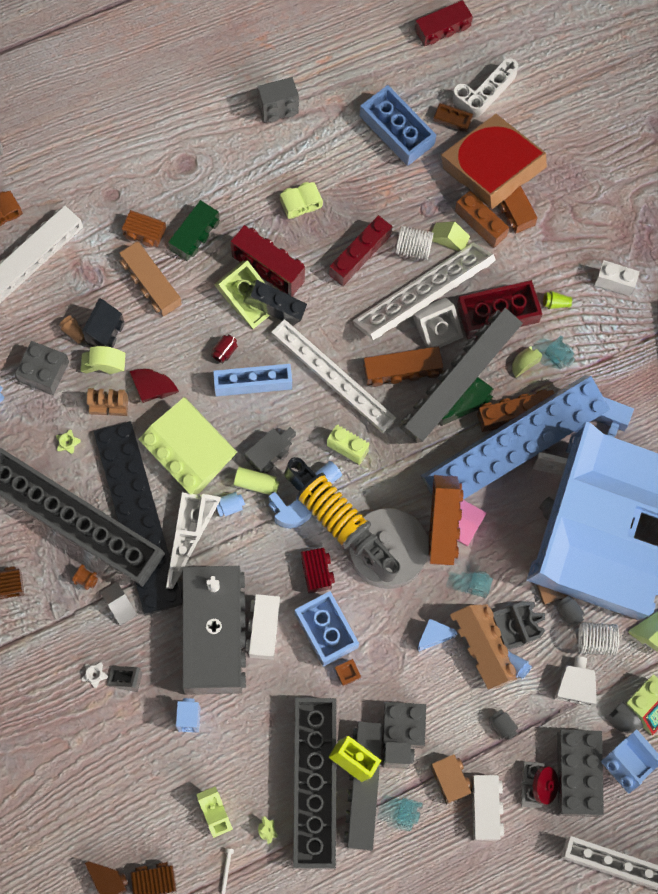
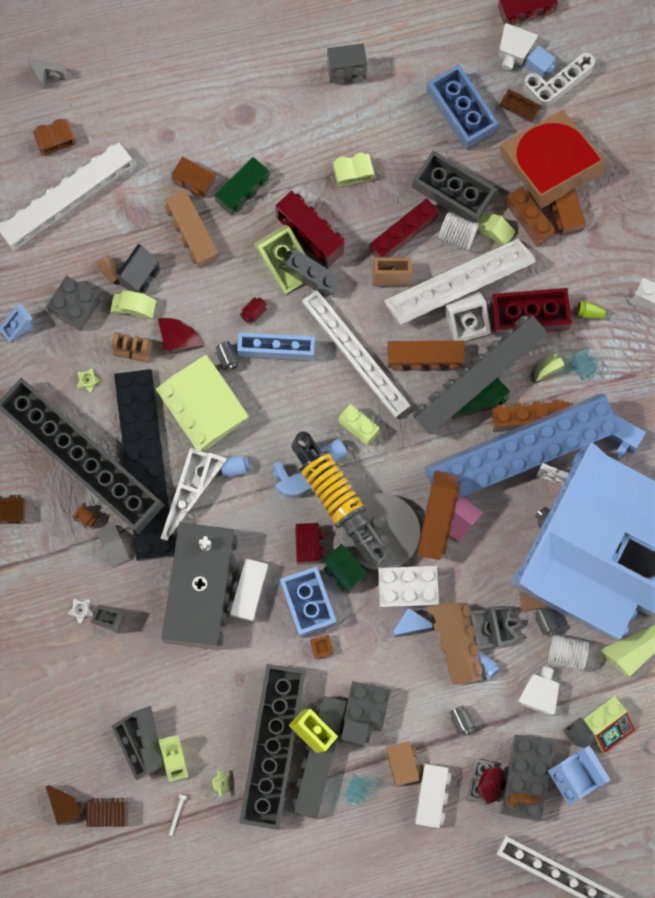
camera: 10 degrees right, 5 degrees up
(176, 800) = (140, 742): none -> dark grey wedge
(188, 715) = (163, 664): light blue brick -> none
(205, 396) = (228, 356): none -> dark grey brick
(256, 481) = (263, 447): yellowish green brick -> none
(270, 449) = (281, 418): dark grey hinge -> none
(356, 290) = (392, 271): none -> medium nougat brick
(358, 589) = (344, 569): none -> dark green slope
(402, 201) = (469, 194): none -> dark grey brick
(425, 598) = (407, 587): none -> white brick
(438, 62) = (515, 46): none -> white torso
(465, 73) = (541, 62): none -> light blue brick
(480, 584) = (463, 582): clear light blue brick -> none
(582, 793) = (525, 798): none -> clear orange arm

